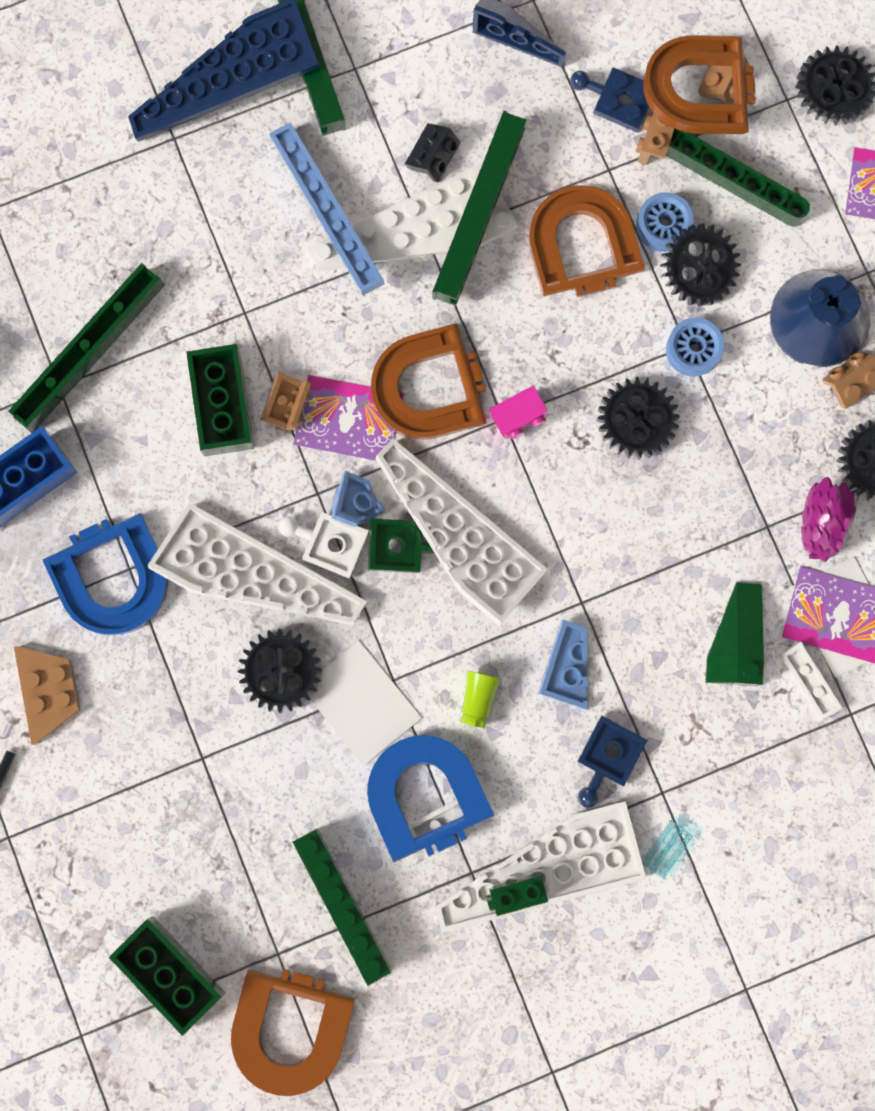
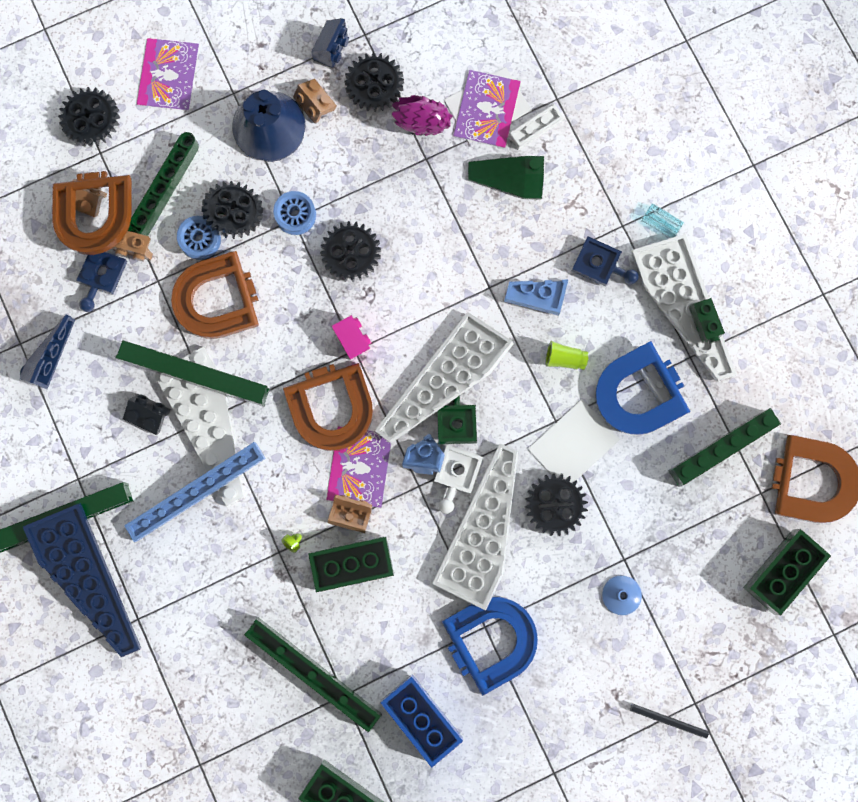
camera: 90 degrees left, 0 degrees up
(46, 690) = (583, 683): medium nougat wing -> none
(169, 751) = (612, 591): none -> medium blue dish
(255, 327) = (292, 542): none -> lime tile

